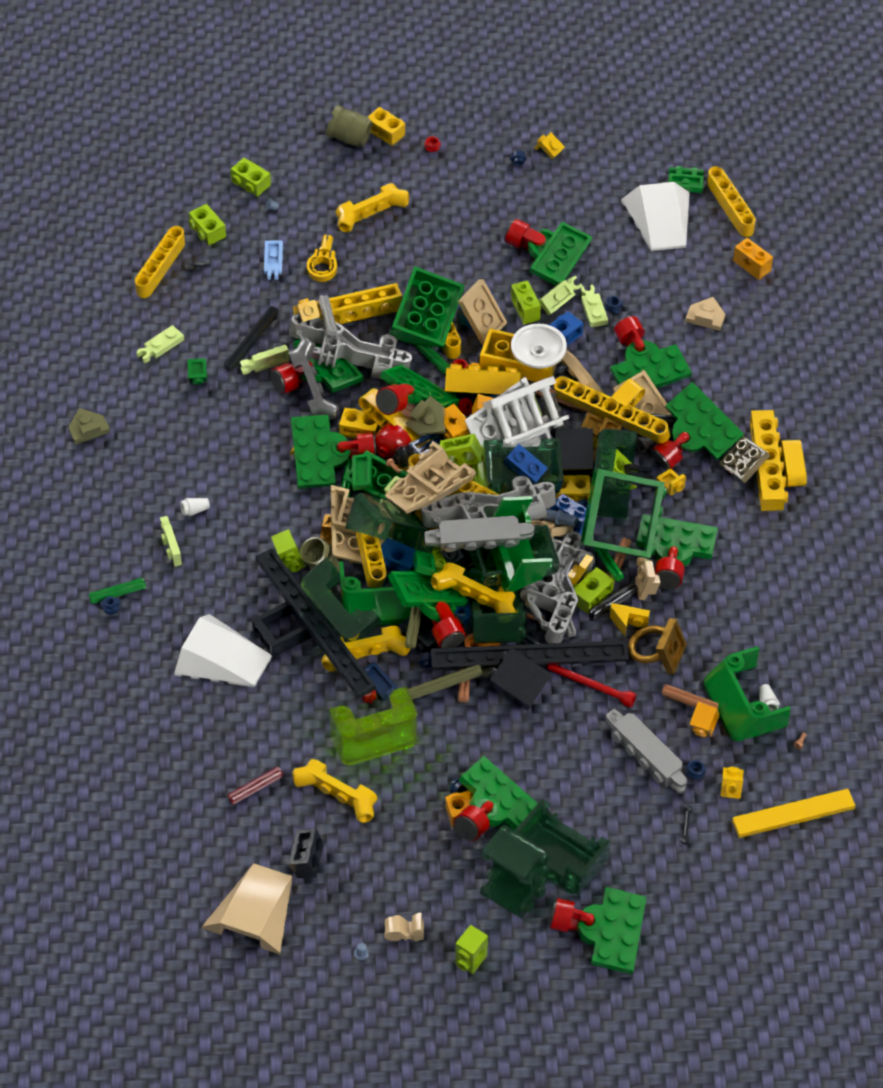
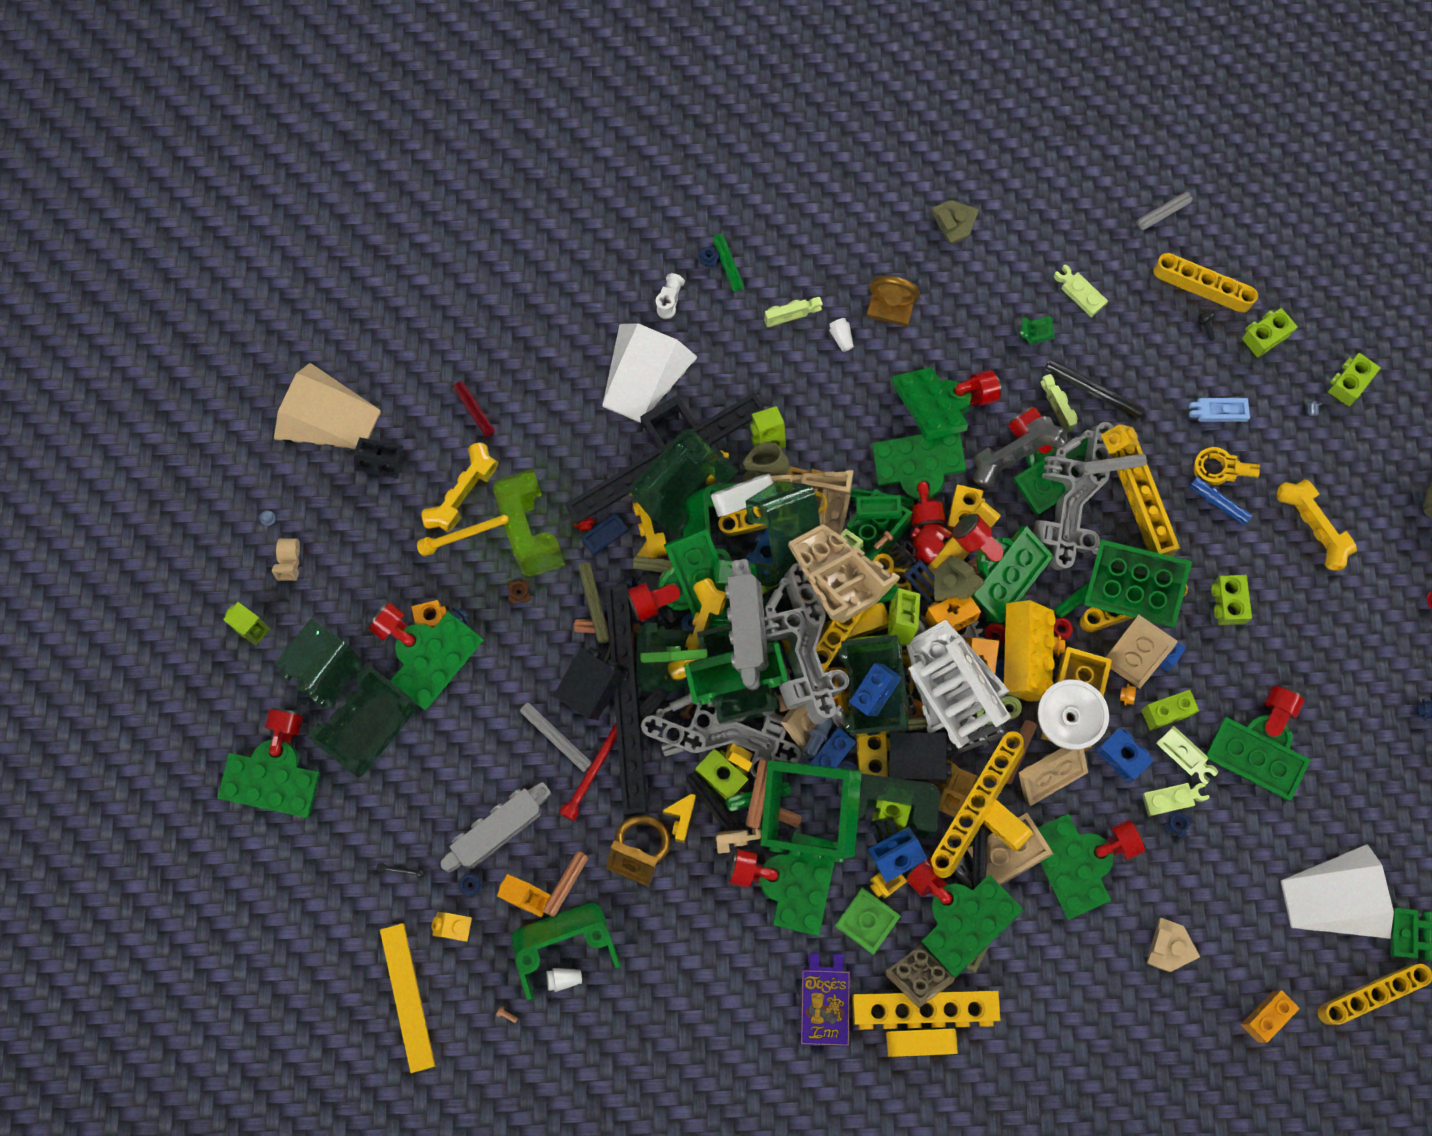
camera: 90 degrees right, 20 degrees up
(89, 285) = (1164, 210): none -> light grey axle
(150, 632) = (668, 297): none -> white connector
(161, 470) = (892, 300): none -> pearl gold tile
(262, 432) = (941, 404): none -> green plate
(347, 268) = (1212, 495): none -> blue pin
(353, 559) = (734, 497): none -> white beam
(390, 811) = (429, 545): none -> yellow piece
(433, 738) = (514, 587): none -> reddish brown plate
(436, 260) = (1238, 600): none -> lime brick
(504, 590) = (673, 654): none -> bright green plate
(512, 327) = (1128, 694): none -> light orange plate
(563, 712) = (555, 737): none -> light grey axle
(609, 555) = (757, 799): none -> nougat axle
(652, 464) = (897, 854): none -> blue brick
(703, 496) = (867, 921): none -> bright green plate
(767, 525) = (825, 1003): none -> tile

